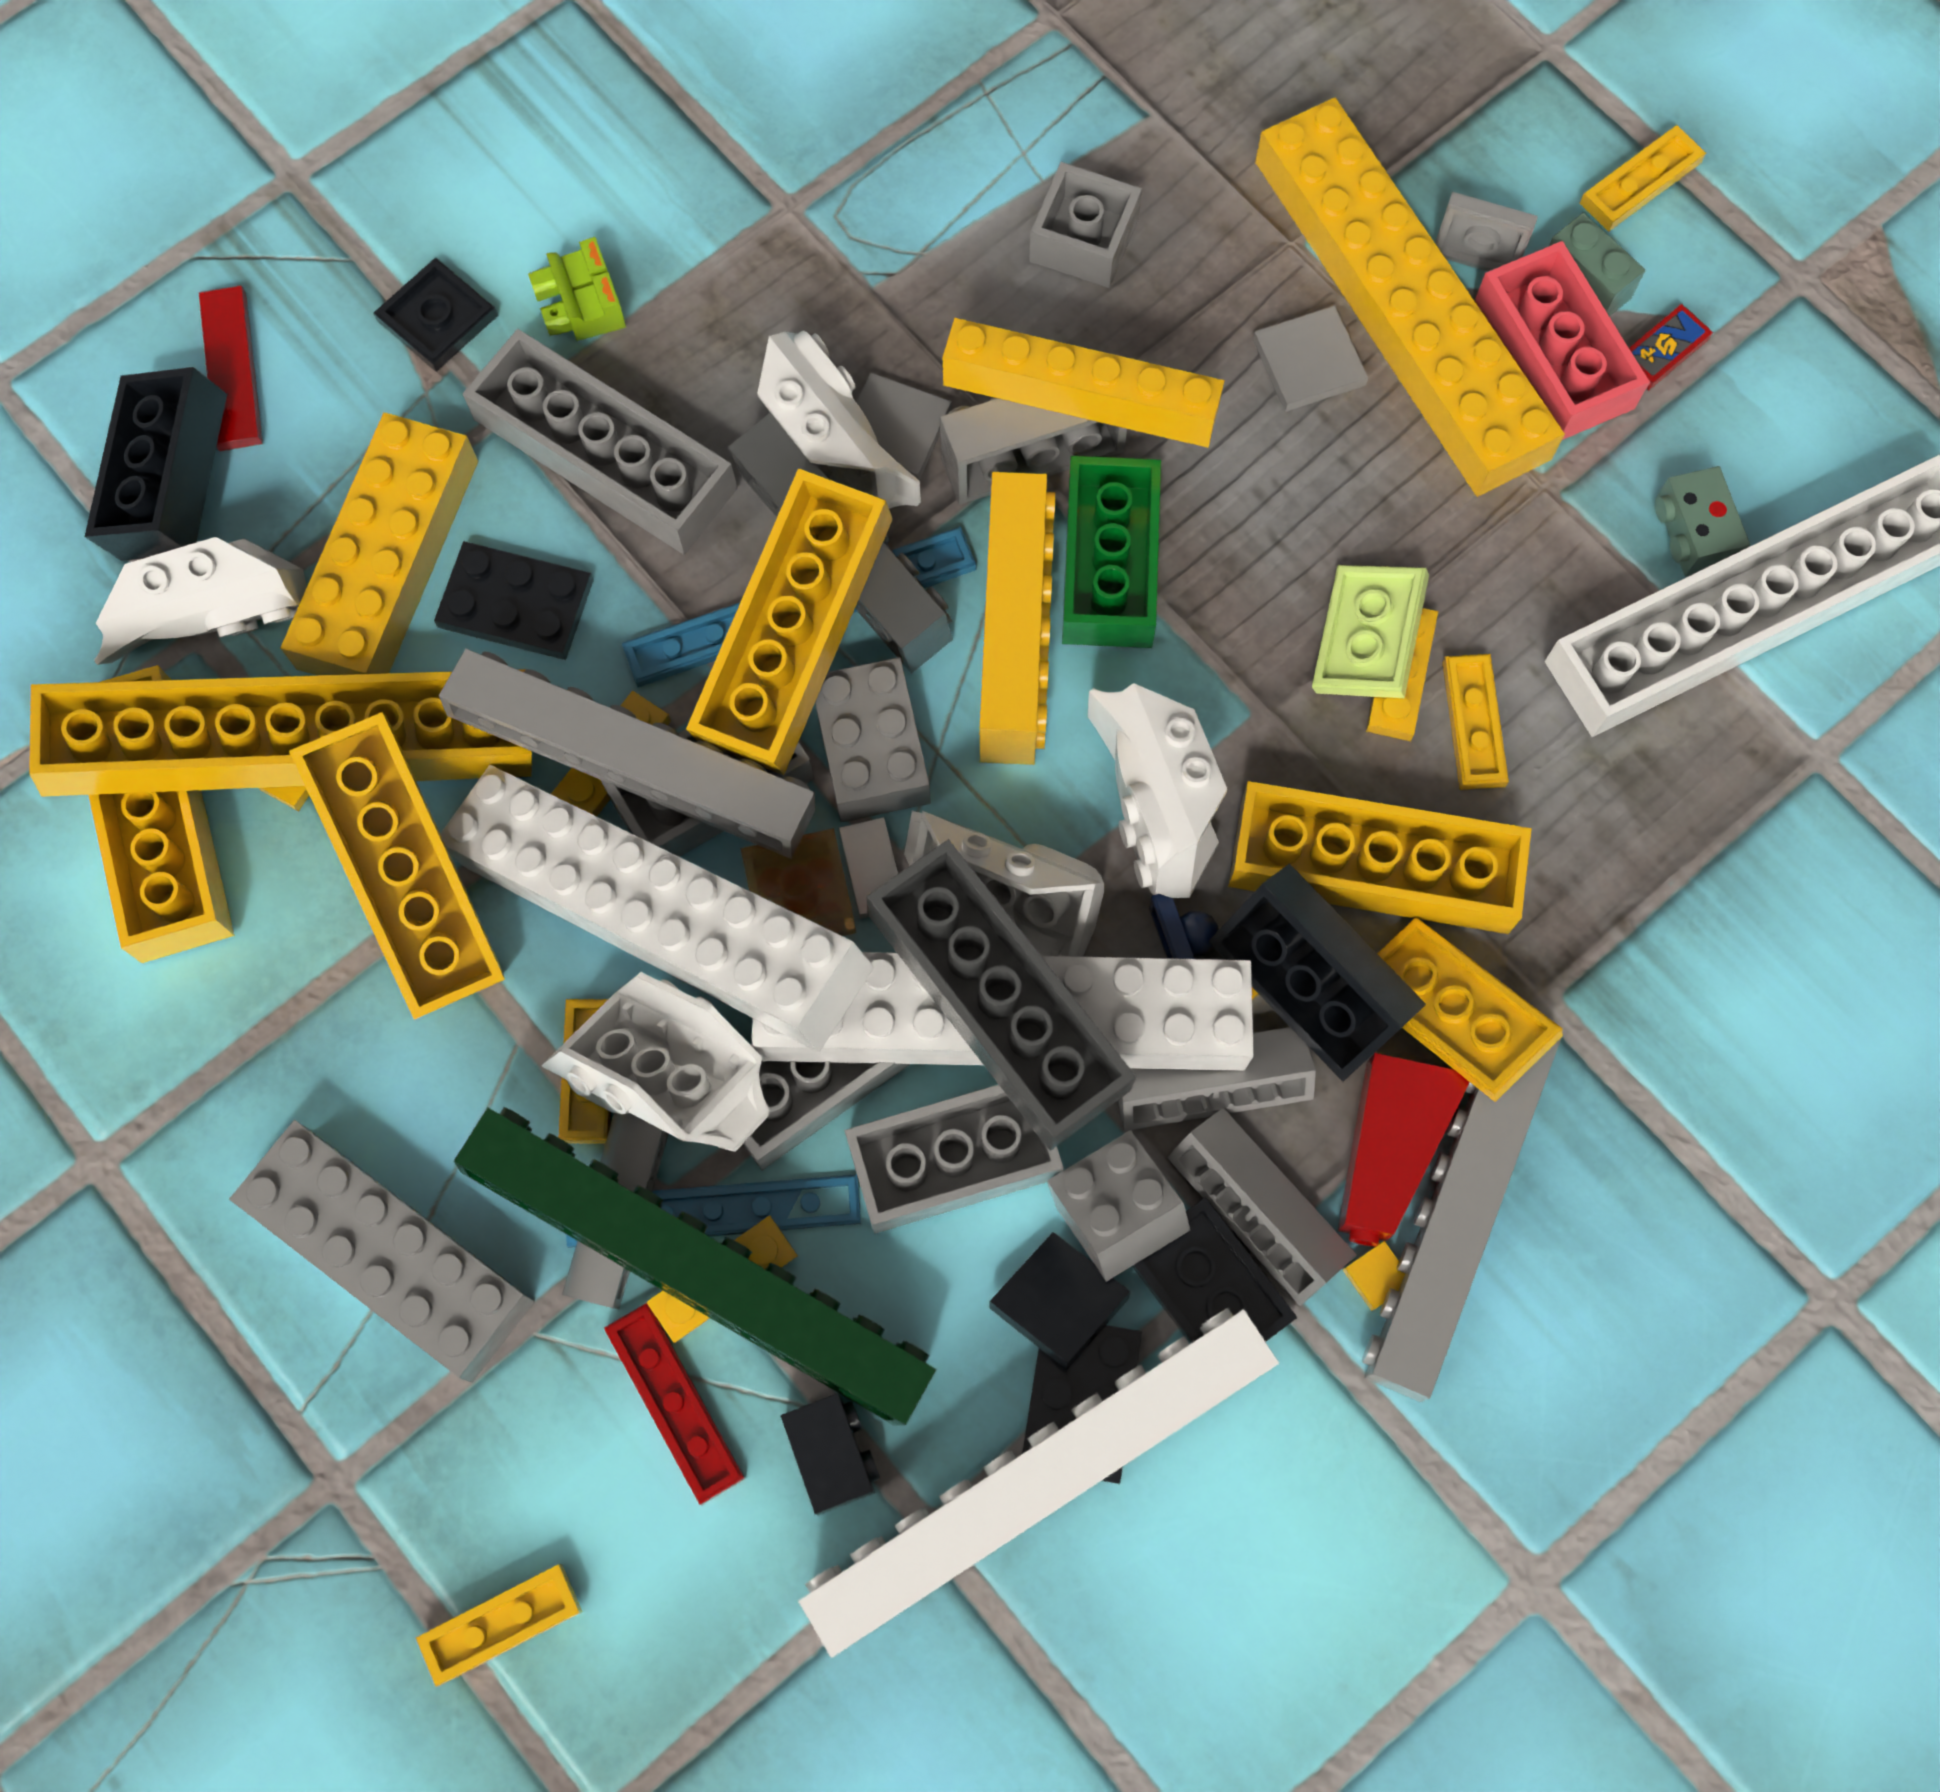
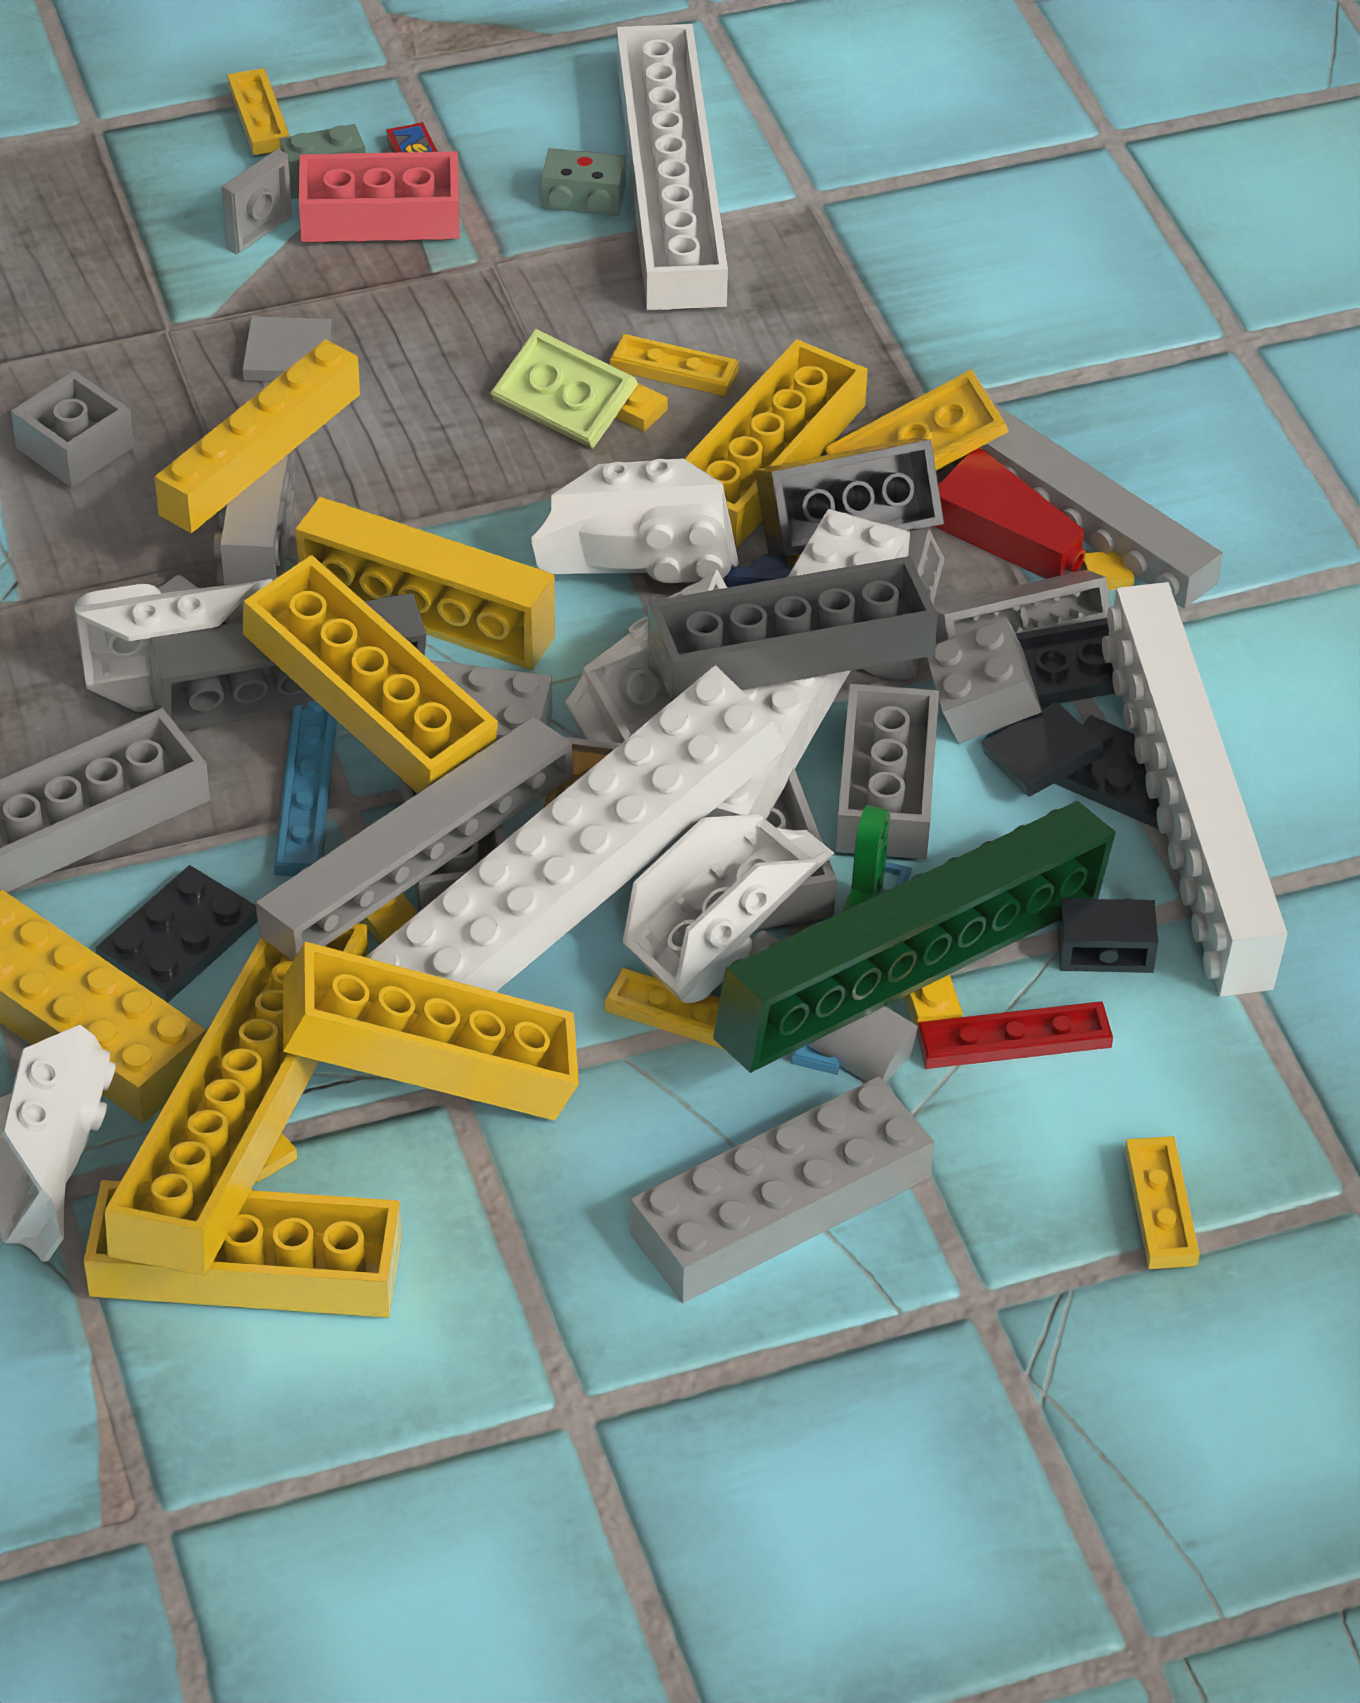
camera: 70 degrees left, 25 degrees down
(777, 1186) = (869, 855): none -> green beam
(1111, 552) = (404, 493): green brick -> none
(1408, 297) = (271, 269): yellow brick -> none

